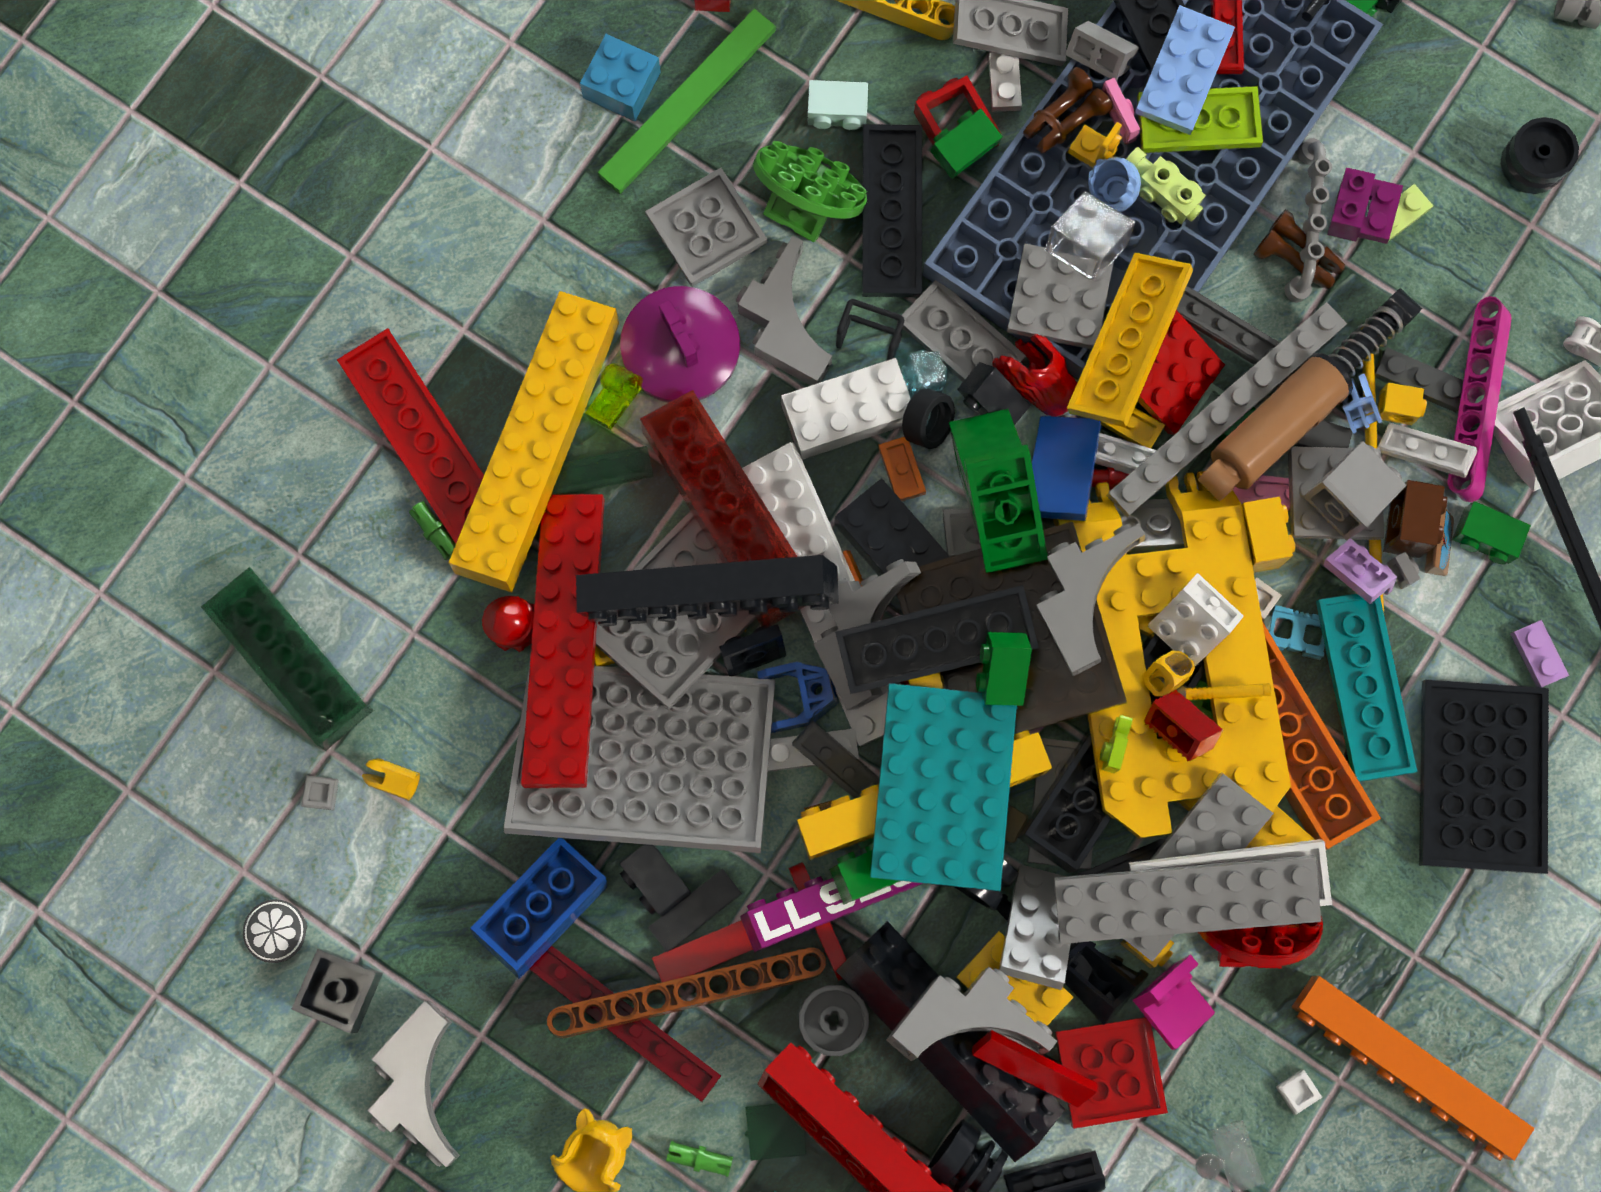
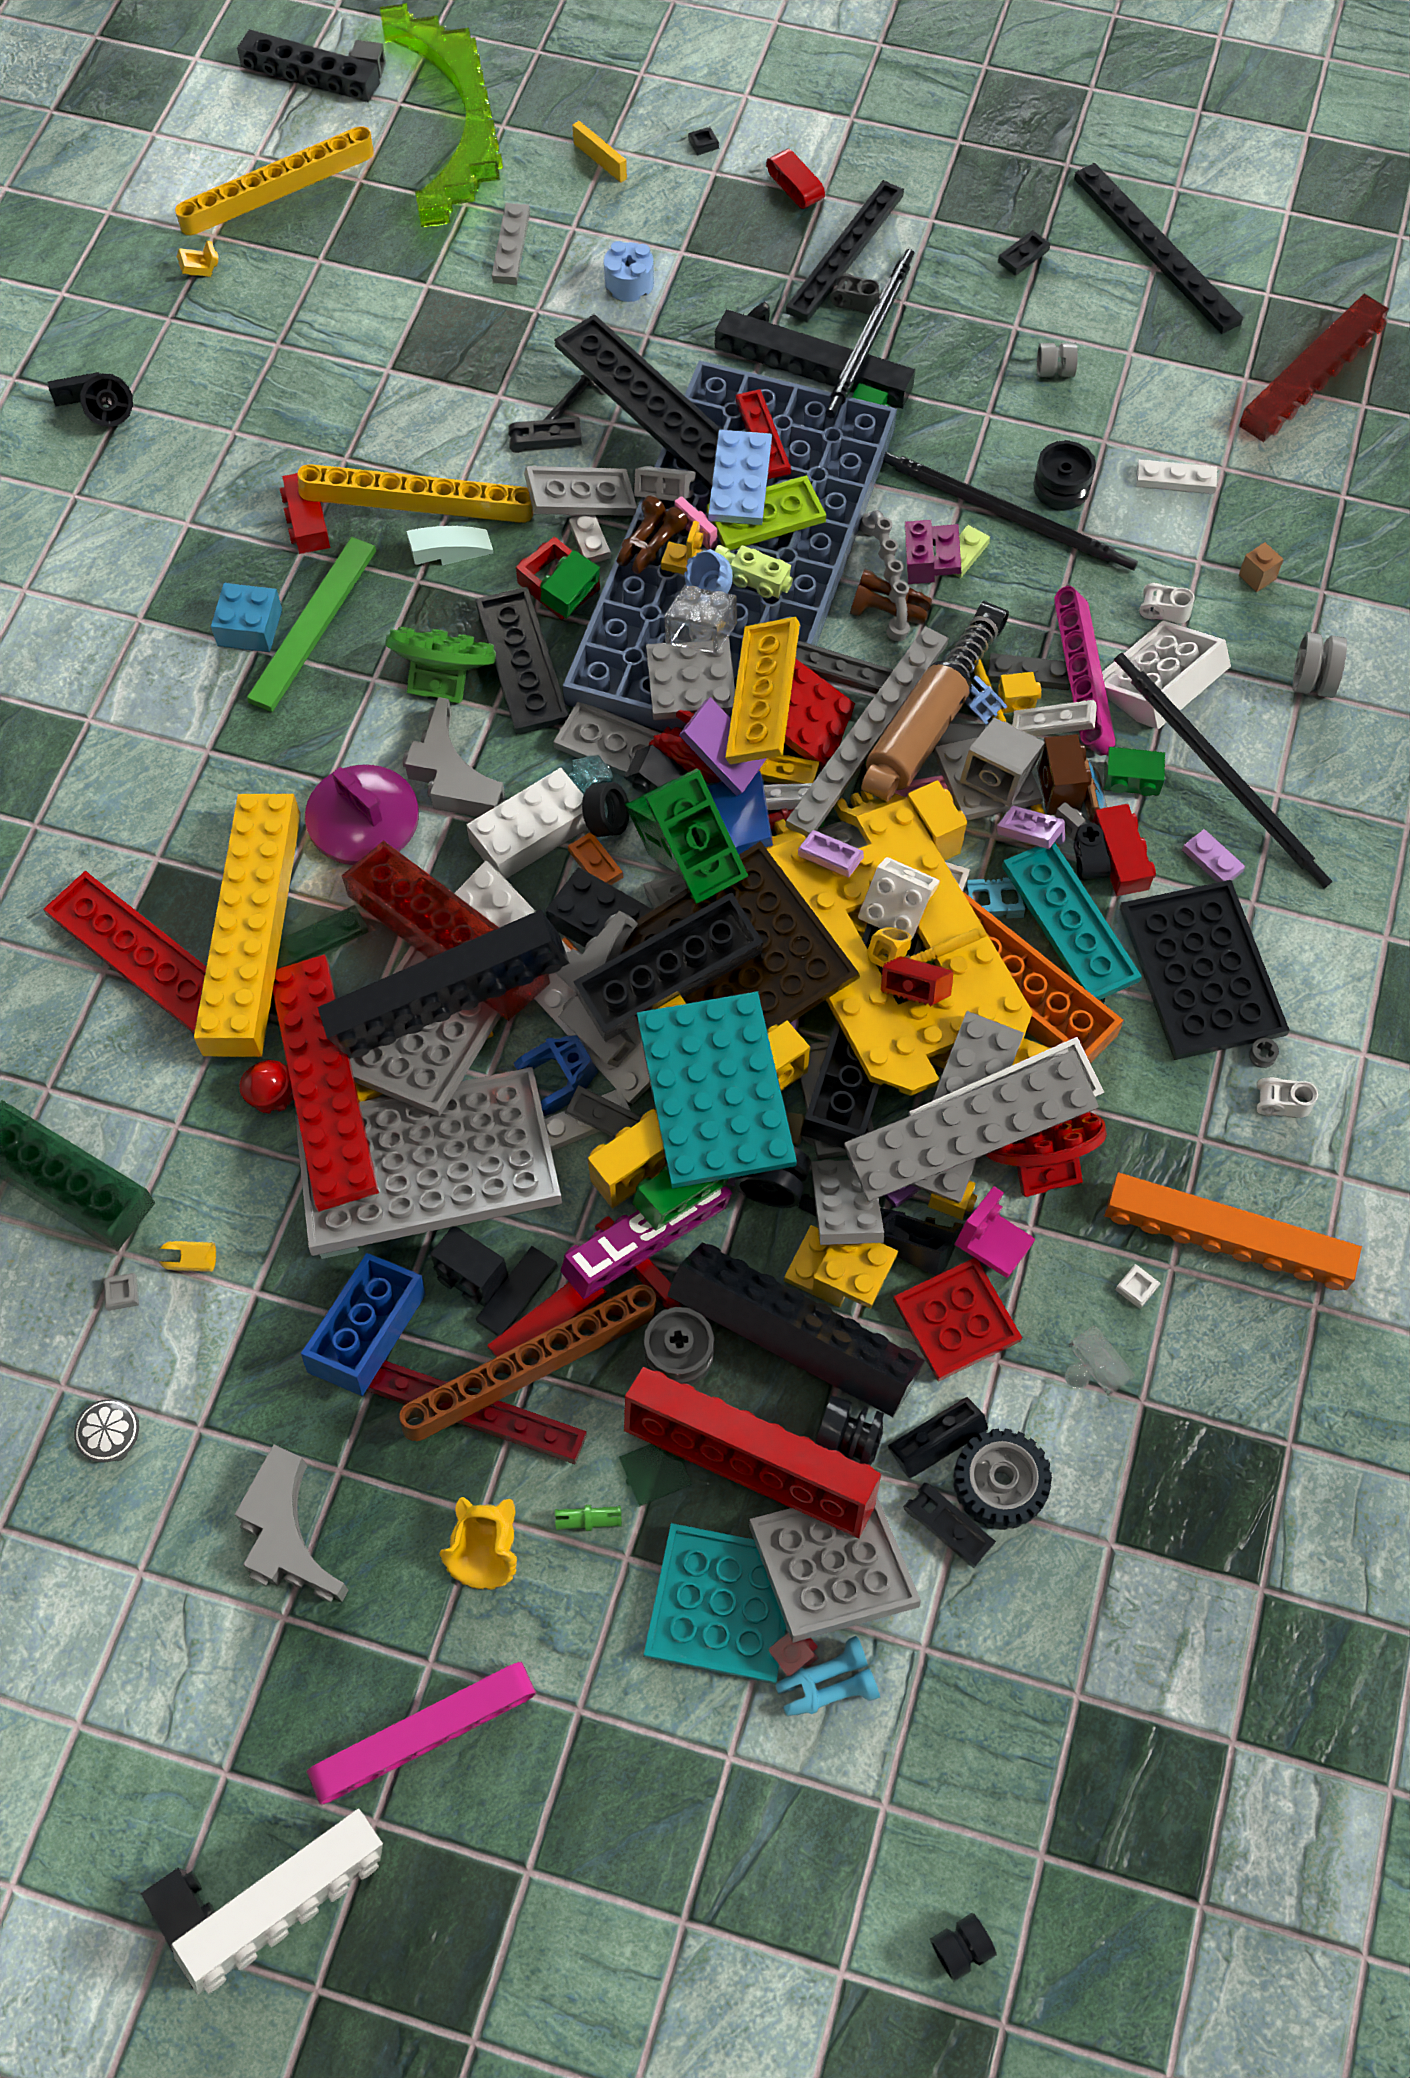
camera: 15 degrees left, 15 degrees down
(337, 991) = (183, 1462): brick -> none
(433, 529) = (172, 1029): bright green pin -> none
(618, 392) = (315, 866): clear neon green plate -> none
(706, 227) = (358, 715): light grey plate -> none
(754, 650) = (503, 1042): black plate -> none
(837, 104) = (447, 589): light aqua brick -> none
(846, 319) = (507, 761): black piece -> none
(854, 47) = (448, 544): none -> light aqua slope
(983, 1007) = (815, 1278): light grey arch -> none
(1004, 668) = (737, 965): green brick -> none
(1034, 1068) = (882, 1323): red tile -> none
(1055, 379) = (708, 738): none -> medium lavender tile
(1081, 577) = (782, 880): light grey arch -> none
(1113, 752) = (861, 1019): lime plate -> none
(1148, 560) = (830, 853): none -> lavender plate
(1412, 619) = (1091, 853): none -> black piece
(1448, 619) = (1127, 850): none -> red brick
(1464, 177) = (1008, 510): none -> black axle
(1512, 942) = (1282, 1097): none -> white piece
(1522, 888) = (1269, 1059): none -> dark grey bush

